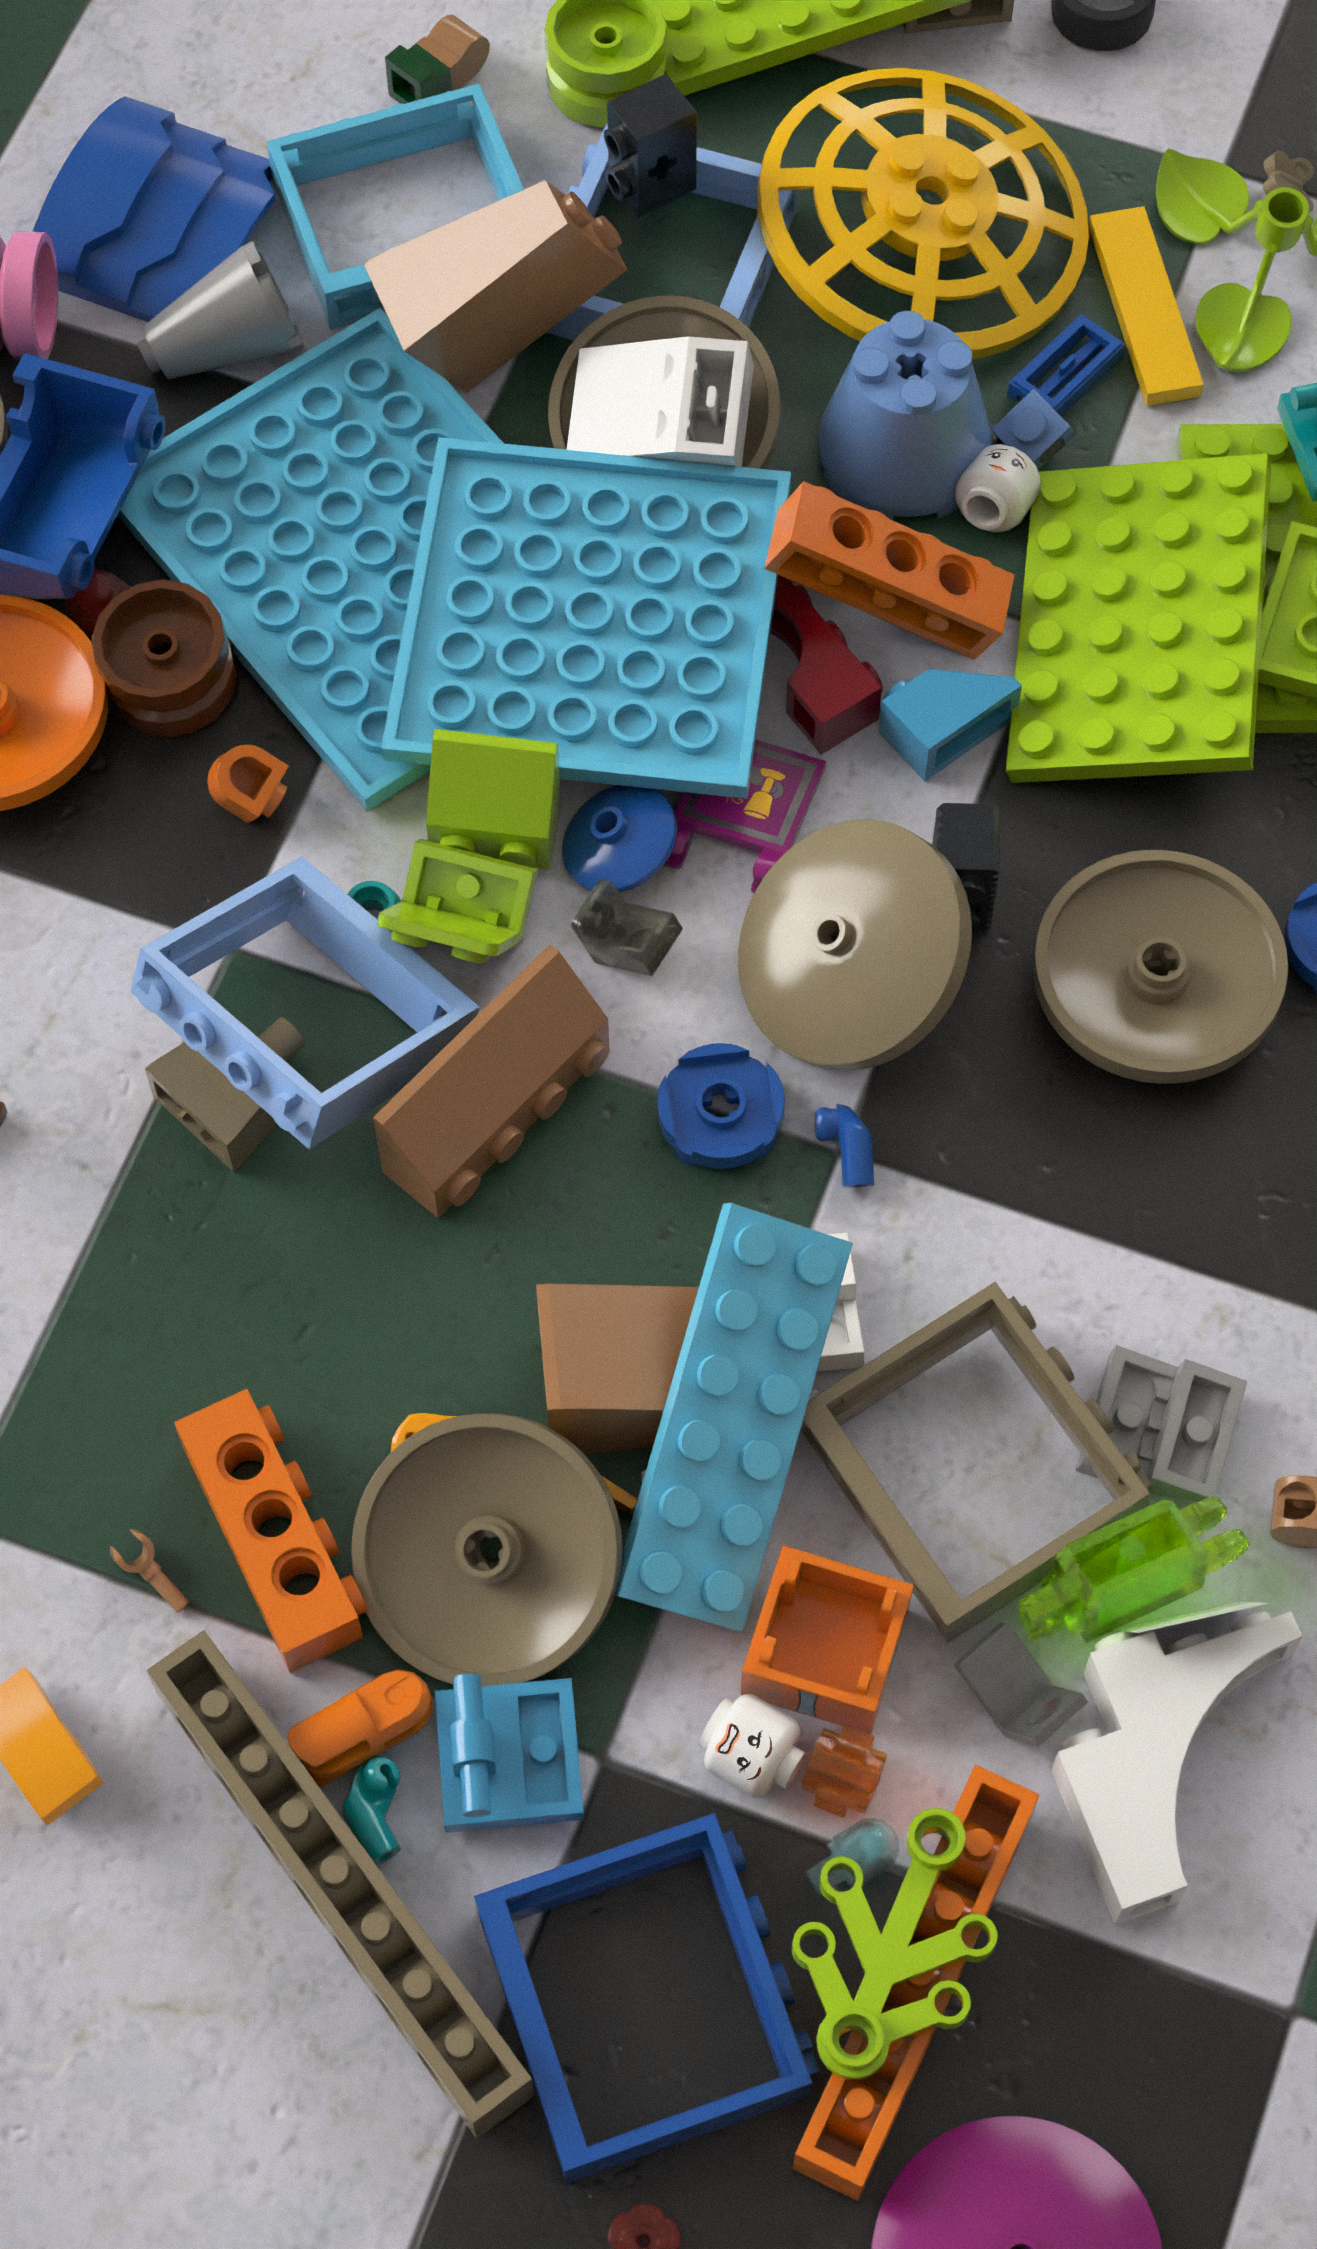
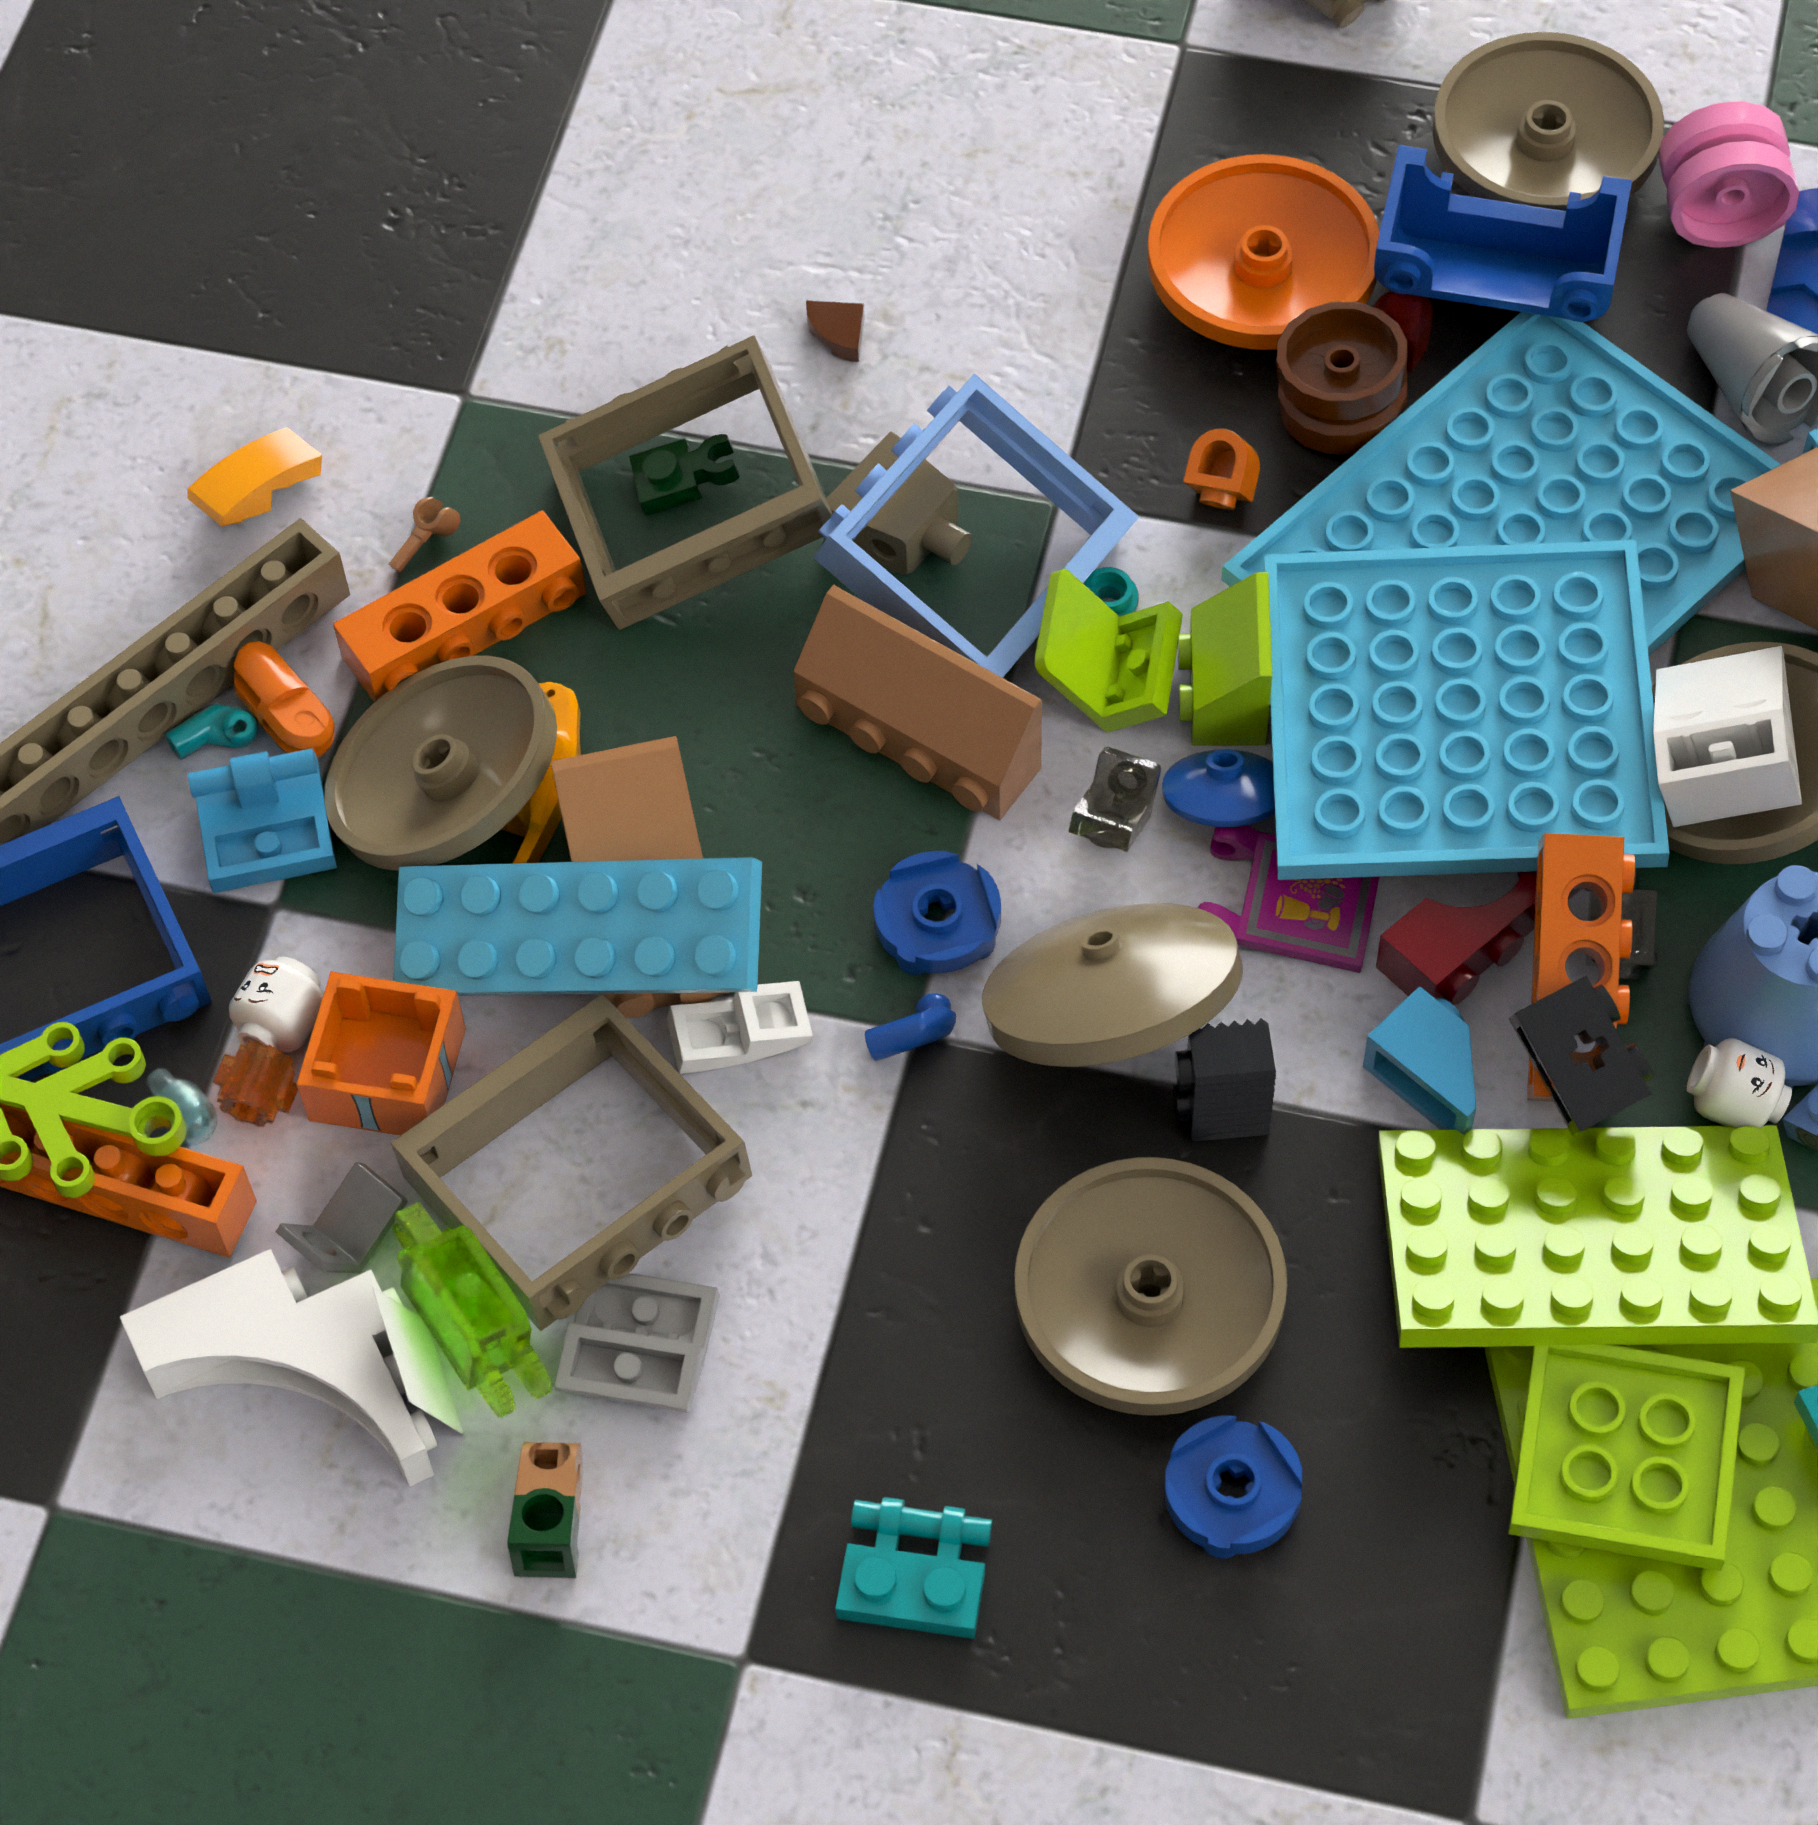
camera: 85 degrees right, 5 degrees down
(51, 1266) = (717, 551): none -> dark tan window
(127, 1304) = (673, 472): none -> dark green plate
(992, 574) = (1548, 1036): none -> black brick

